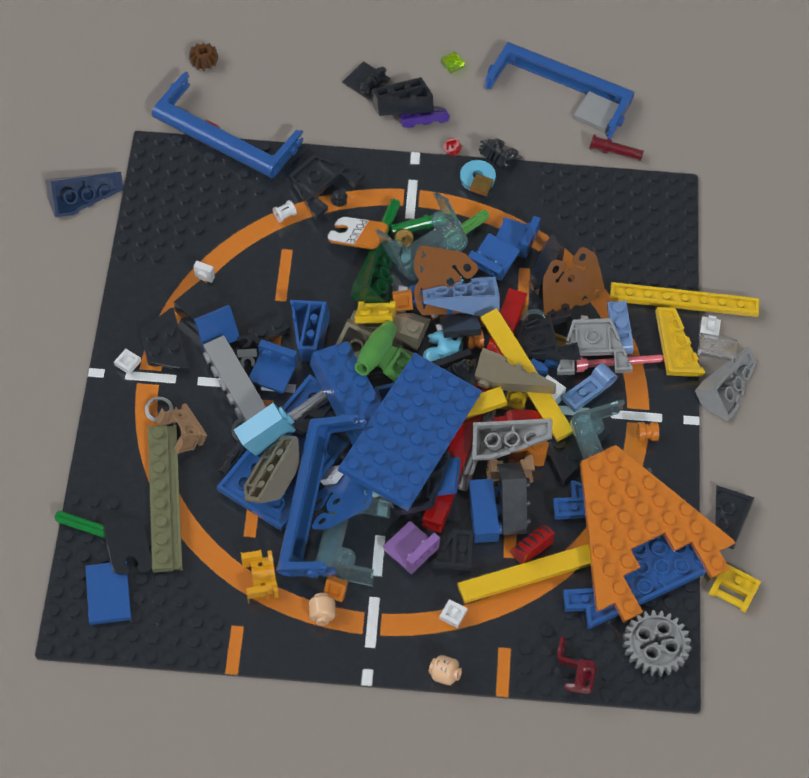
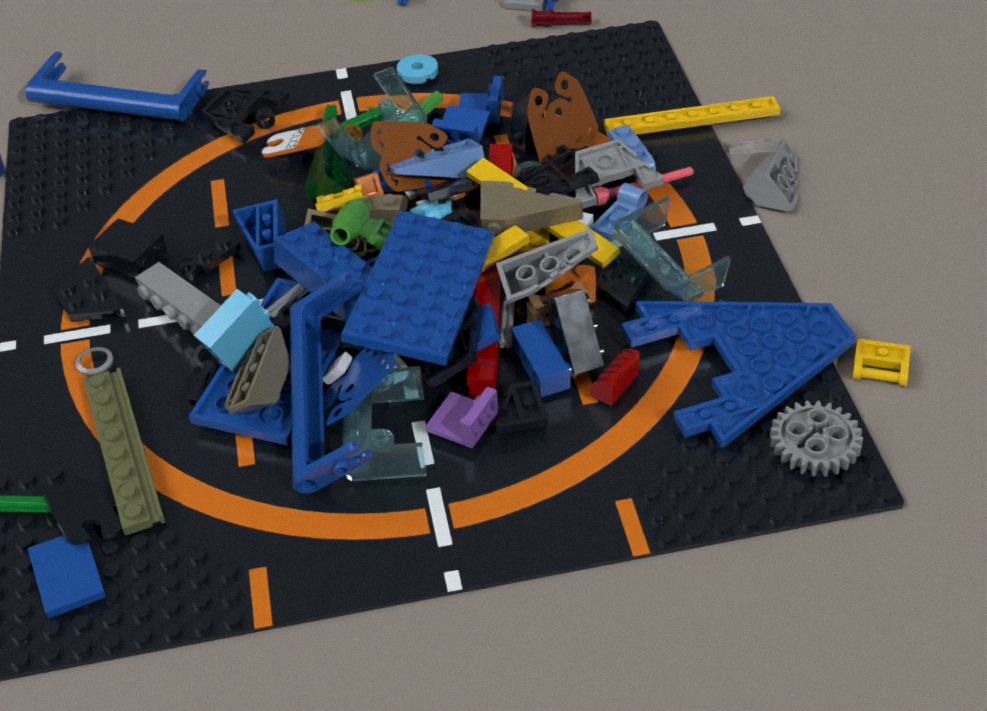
camera: 10 degrees left, 15 degrees down
(127, 361) = (43, 322): white tile -> none
(190, 427) = (140, 366): medium nougat piece -> none
(203, 56) = (76, 42): reddish brown gear -> none
(204, 271) = (121, 211): white plate -> none
(217, 324) = (147, 251): blue tile -> none
(247, 354) = (195, 276): dark grey tile -> none
(262, 574) = (274, 496): light orange piece -> none
(273, 366) = (230, 272): blue bracket -> none
(284, 211) = (204, 142): white bush -> none
(322, 608) = (367, 512): light nougat head -> none
(335, 587) = (377, 485): orange tile -> none
(366, 78) = (267, 24): black hinge -> none
(403, 98) = (312, 24): black wedge -> none
(410, 120) = (342, 37): dark purple hinge -> none
(445, 670) = (555, 538): light nougat head -> none
(452, 147) = (380, 54): red tile -> none
(453, 613) = (542, 474): white plate -> none
(475, 341) = (468, 200): orange wheel -> none
(481, 184) = (424, 71): pearl gold tile -> none
(497, 151) = (435, 46): black hinge -> none
(524, 574) = (629, 405): yellow tile -> none
(585, 671) = (742, 487): dark red piece -> none
(628, 509) = (724, 303): orange wing -> none
(647, 431) = (706, 235): orange wheel -> none
(676, 347) = (701, 155): yellow wing -> none
(710, 325) = (730, 132): white tile -> none
(731, 511) = (840, 289): black wing -> none

